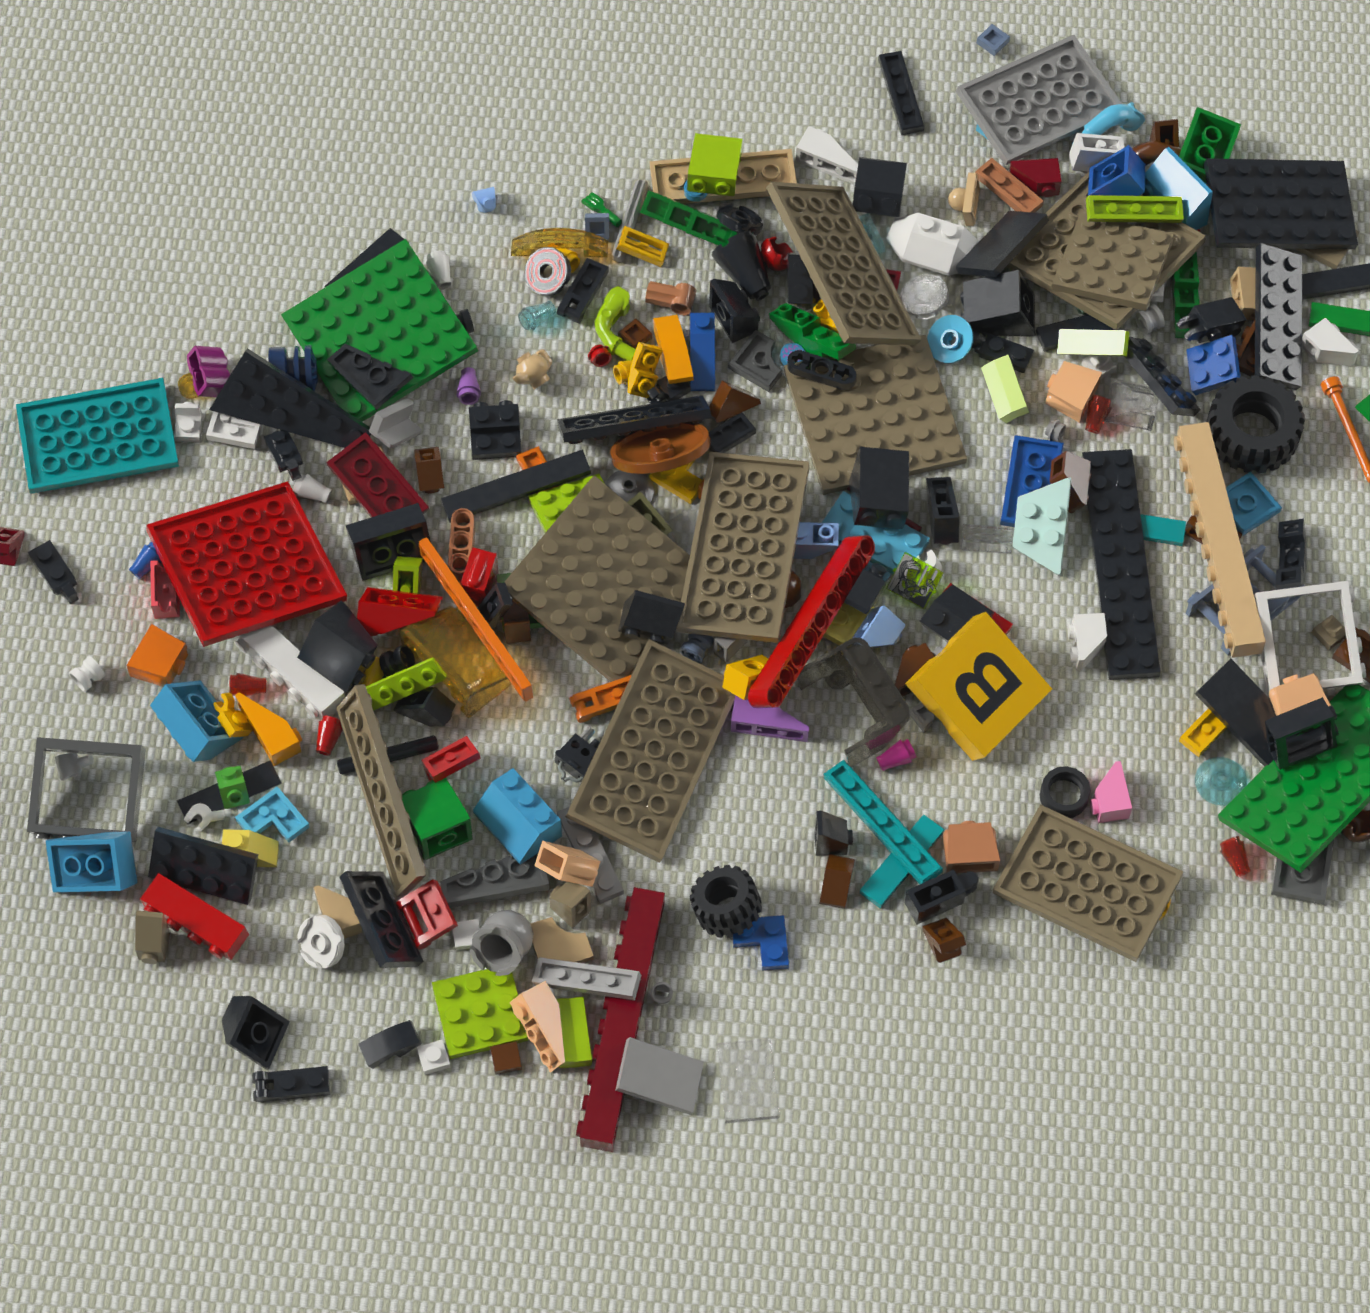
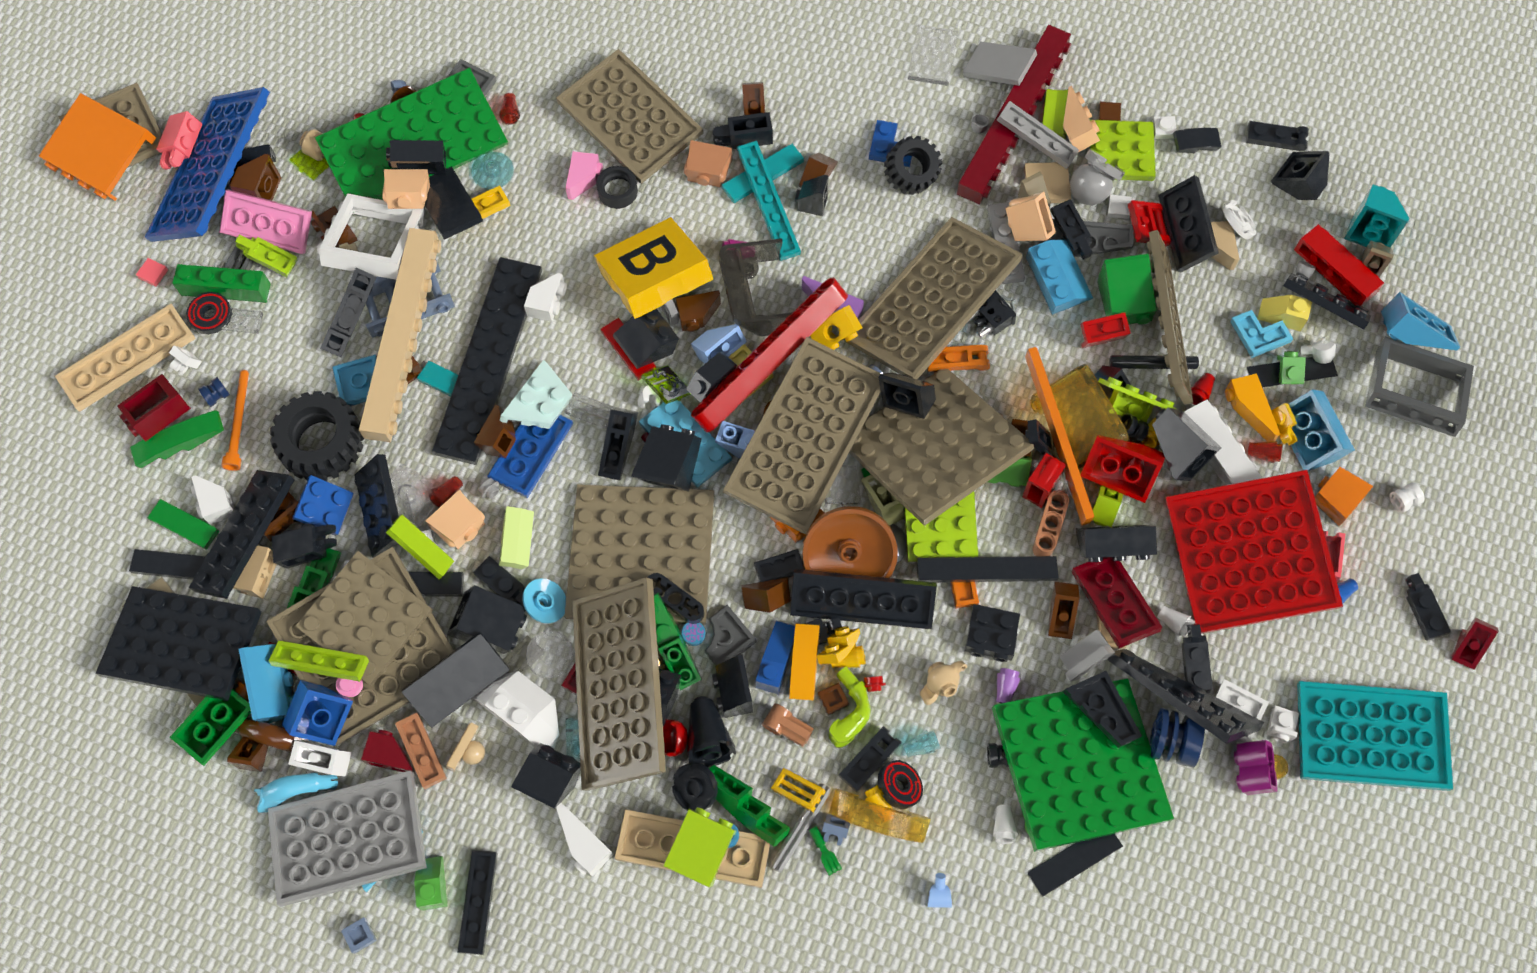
camera: 160 degrees left, 5 degrees up
(161, 967) = (1377, 218): none -> teal slope
(227, 908) = (1305, 269): none -> light grey hinge
(516, 872) = (1073, 228): none -> black hinge
(943, 84) = (431, 885): none -> bright green slope

